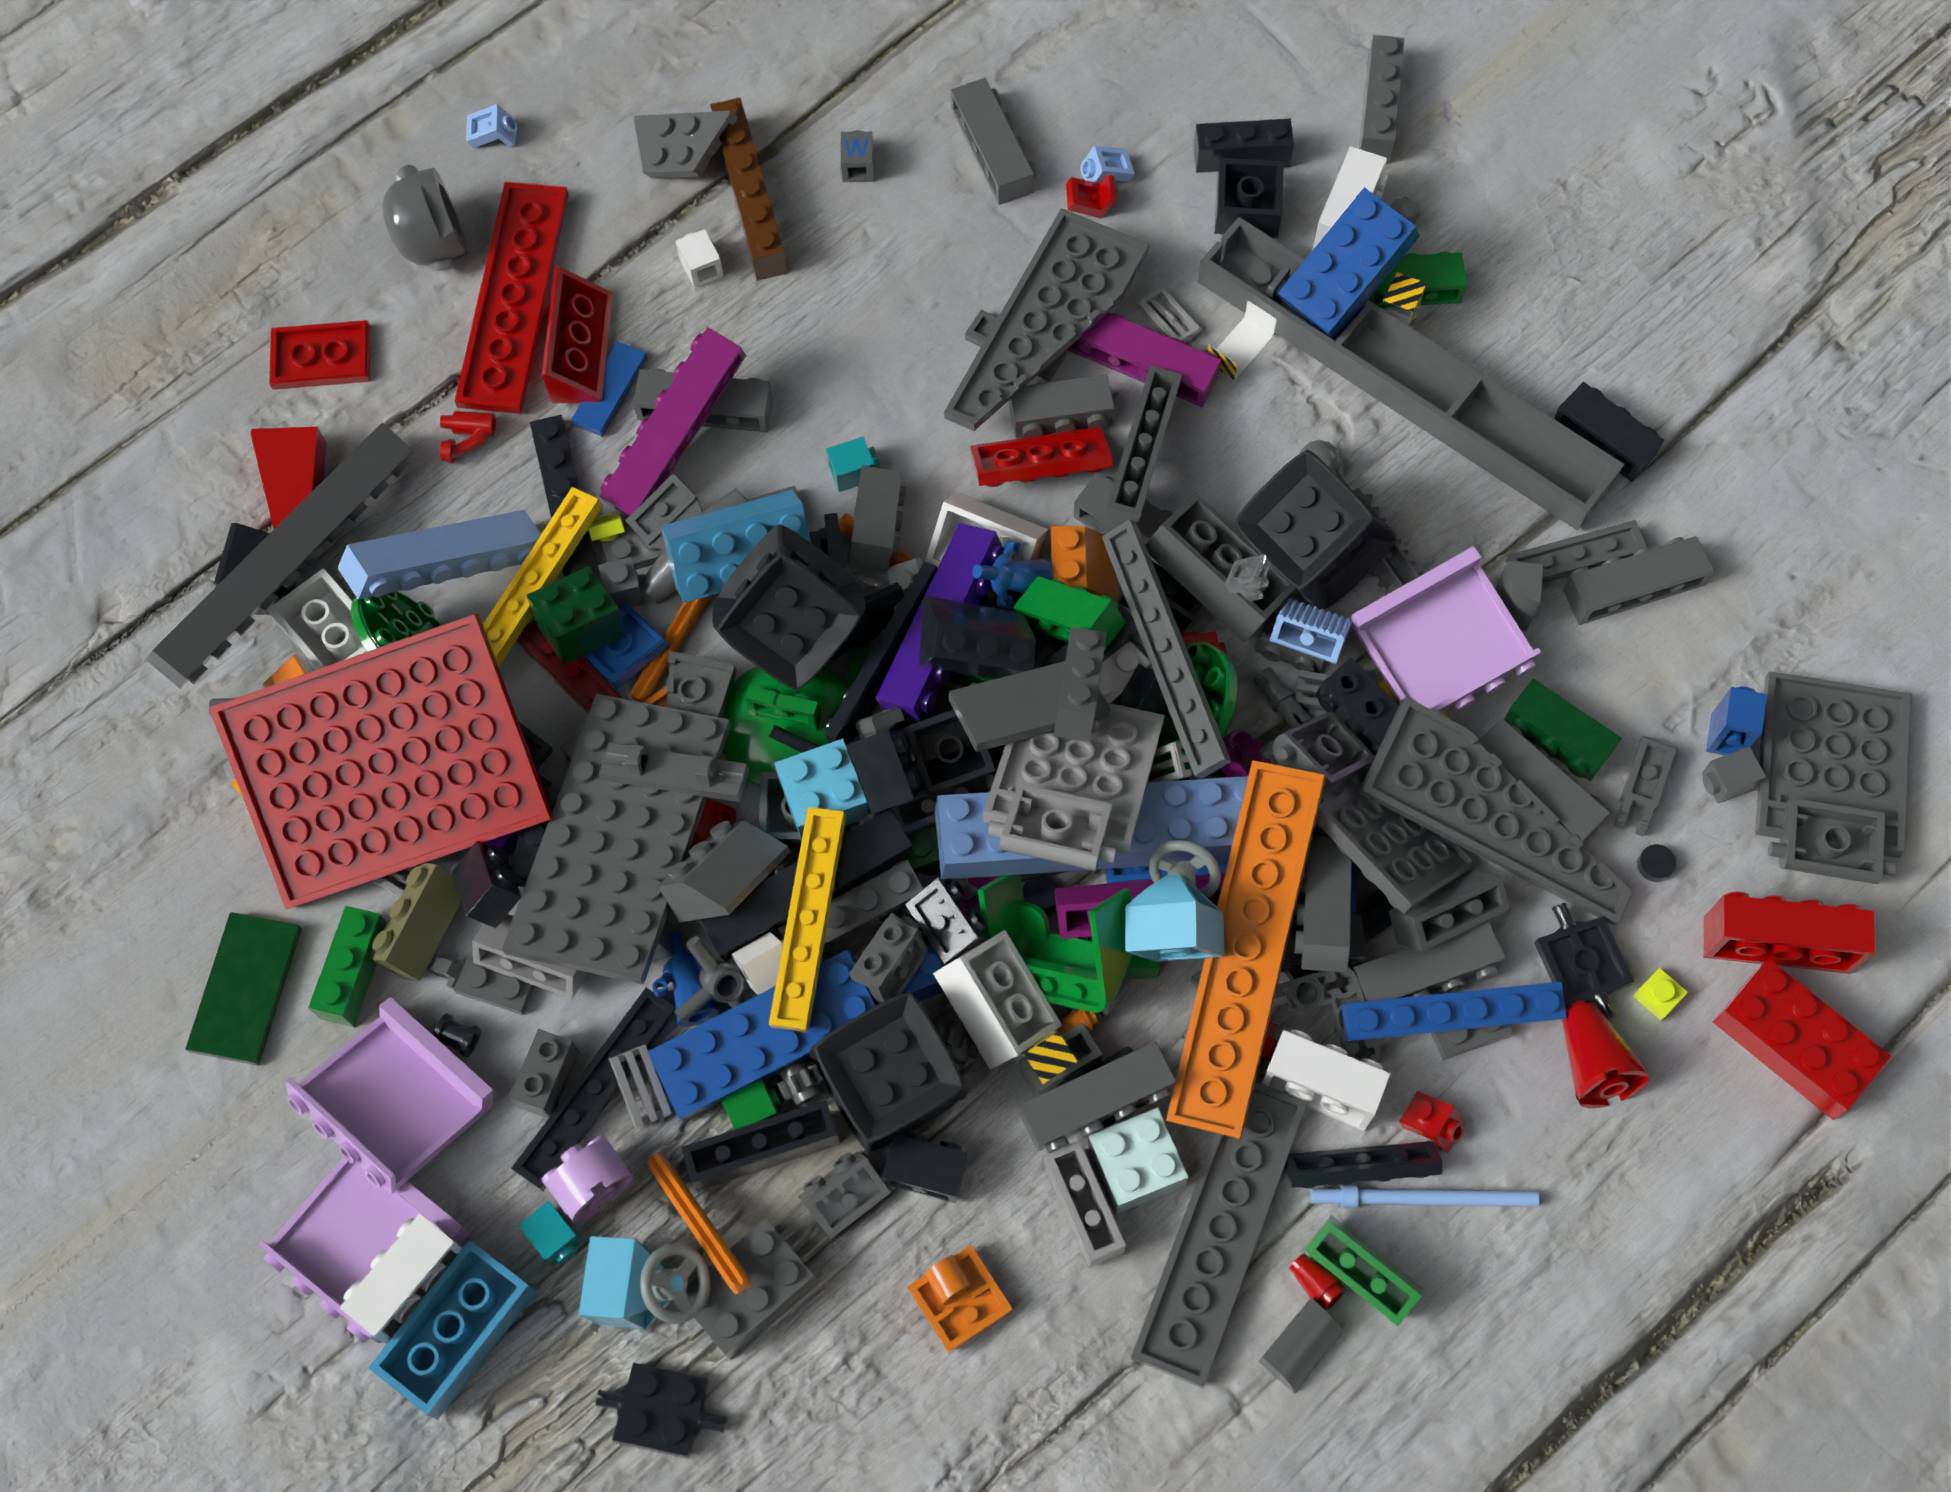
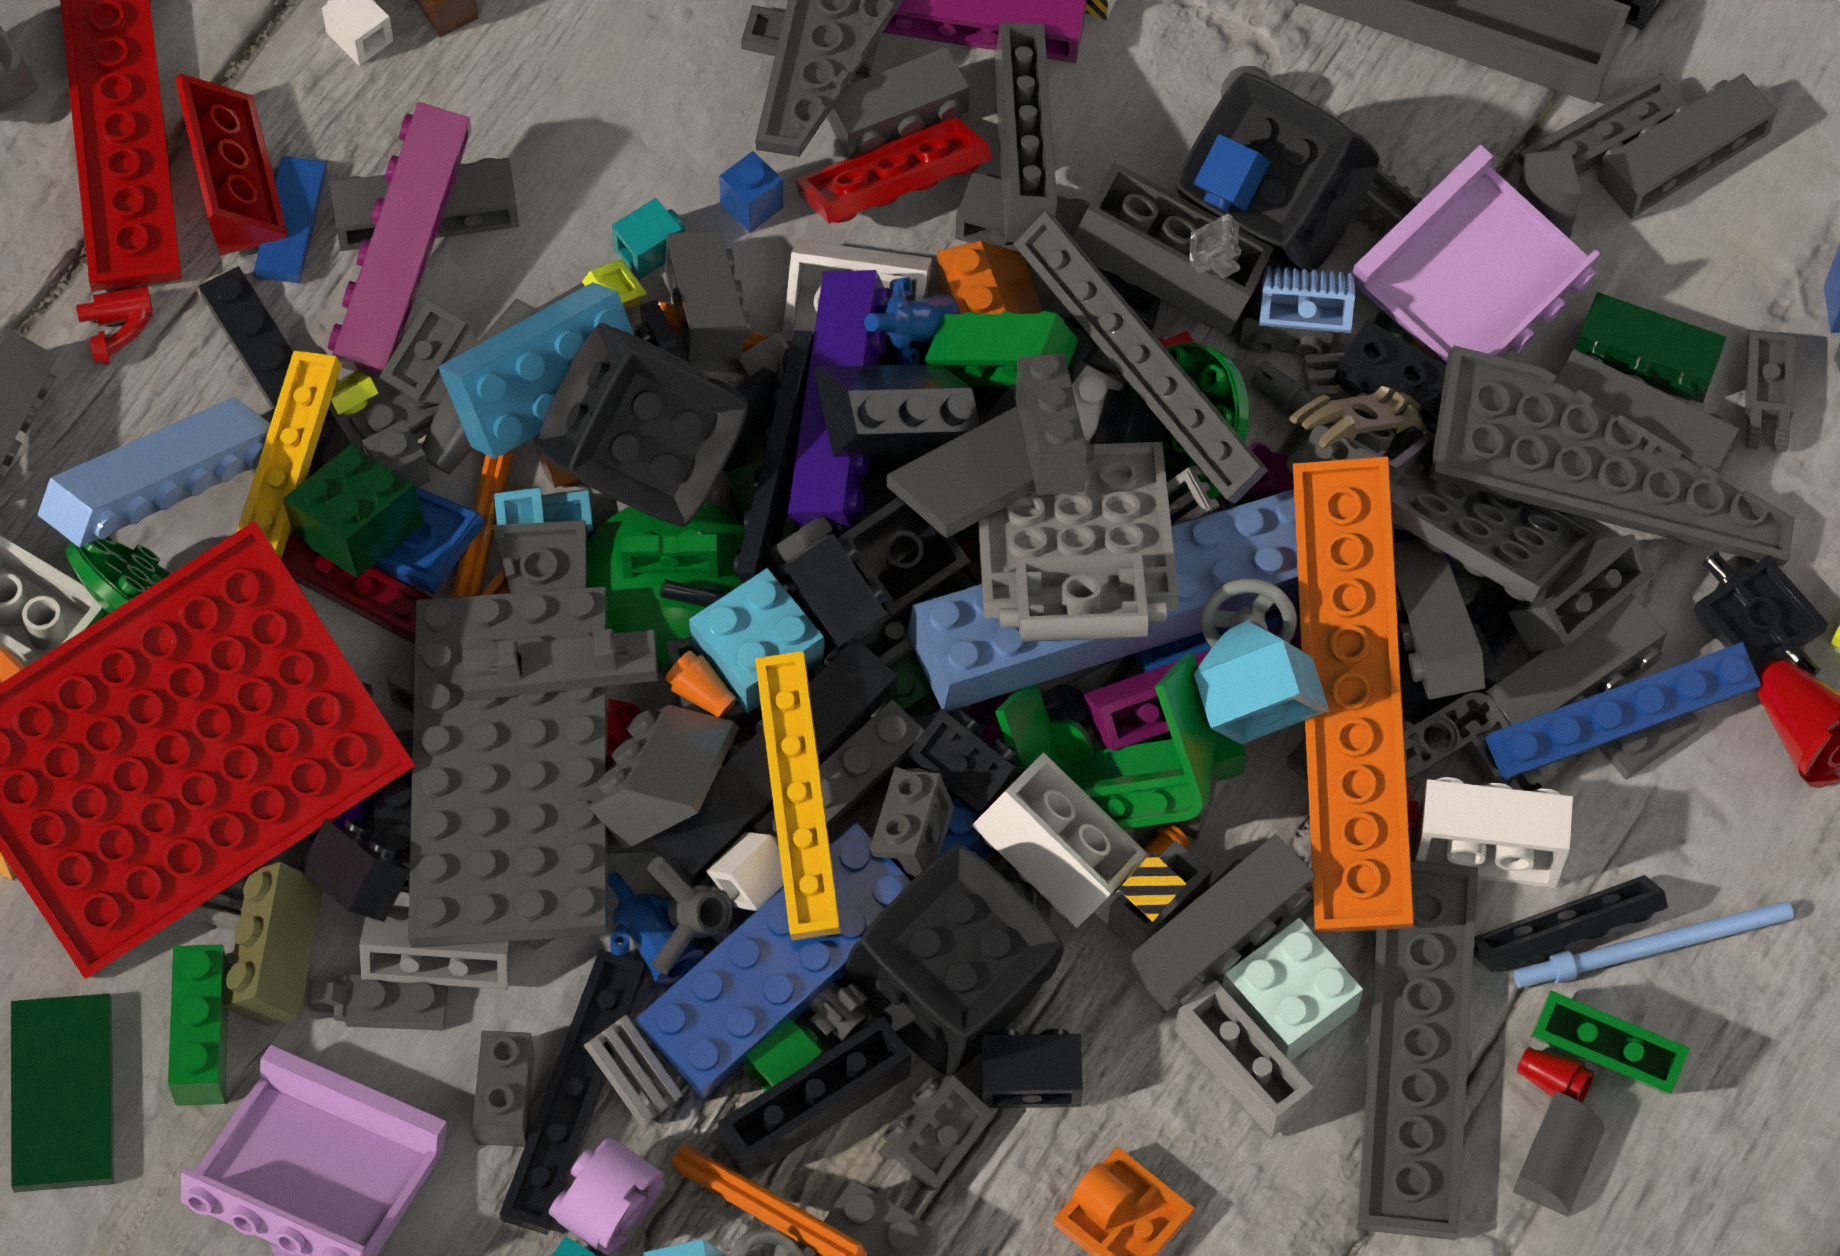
camera: 20 degrees left, 5 degrees down
(457, 1034) = (372, 1071): black bush -> none
(708, 645) = (532, 507): none -> medium azure slope
(772, 812) = (700, 684): none -> orange cone
(816, 494) = (620, 279): none -> neon yellow plate
(935, 447) = (751, 191): none -> blue brick
(1273, 526) = (1231, 174): none -> blue brick
(1307, 737) = (1381, 405): none -> dark tan piece
(1433, 1120) = (1637, 849): red bracket -> none
(1656, 863) = (1811, 479): black tile -> none

